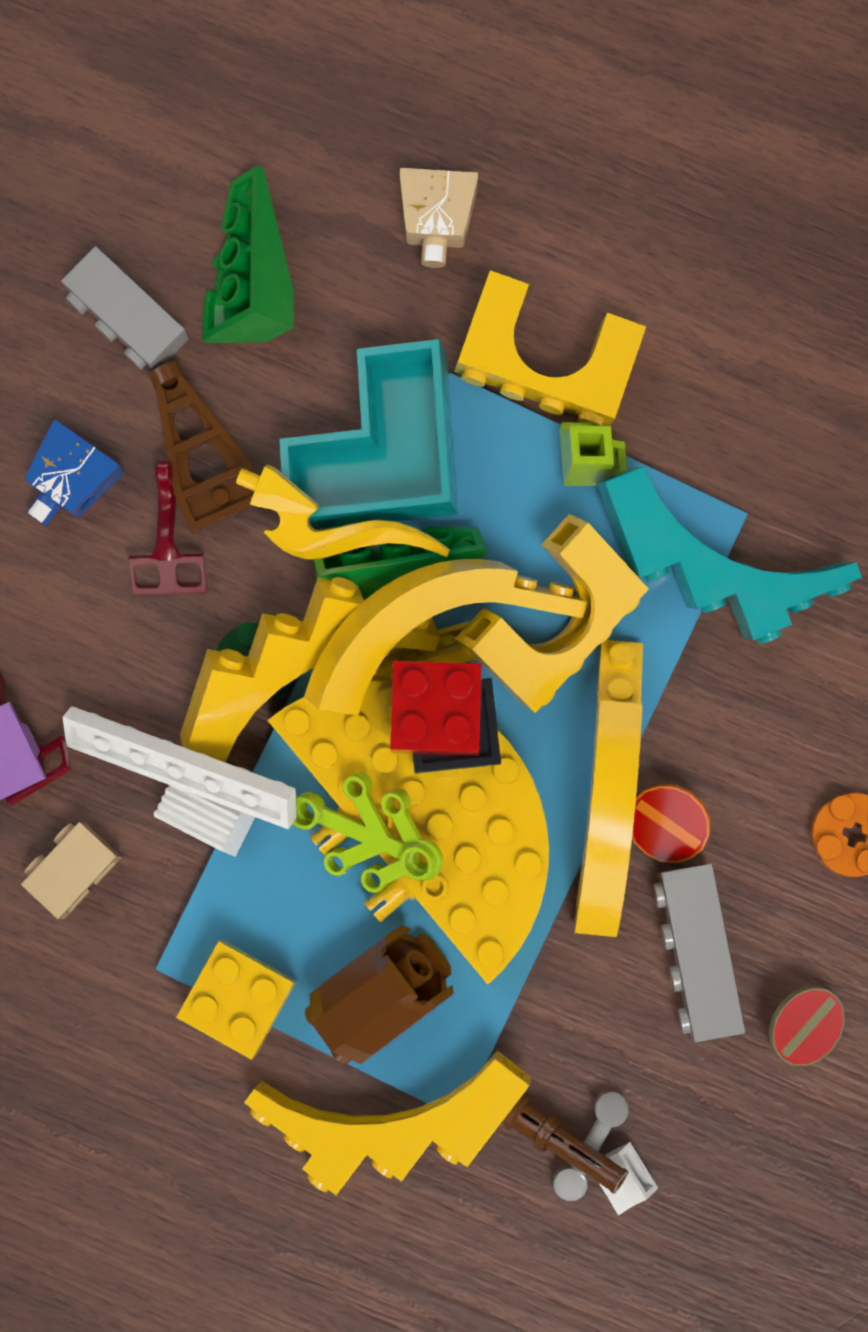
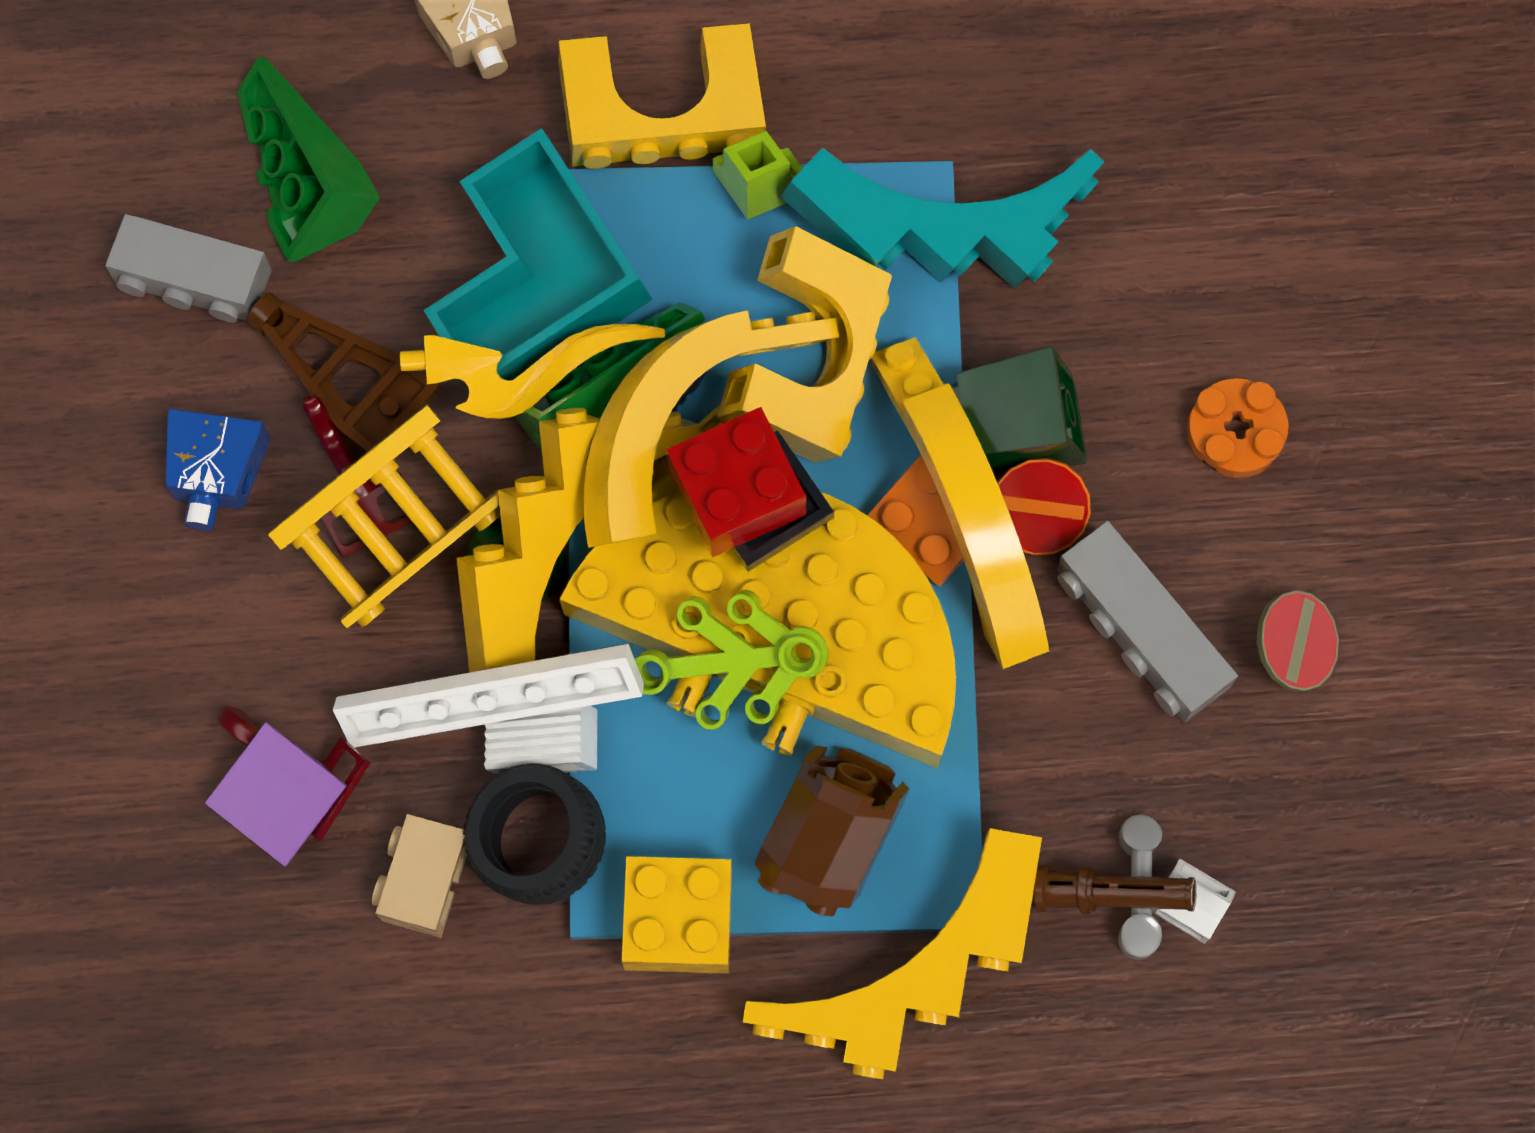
camera: 30 degrees left, 10 degrees down
(125, 875) = (495, 804): none -> black tyre
(186, 547) = (342, 500): none -> yellow fence
(565, 793) = (920, 523): none -> orange plate
(691, 745) = (1024, 409): none -> dark green hips

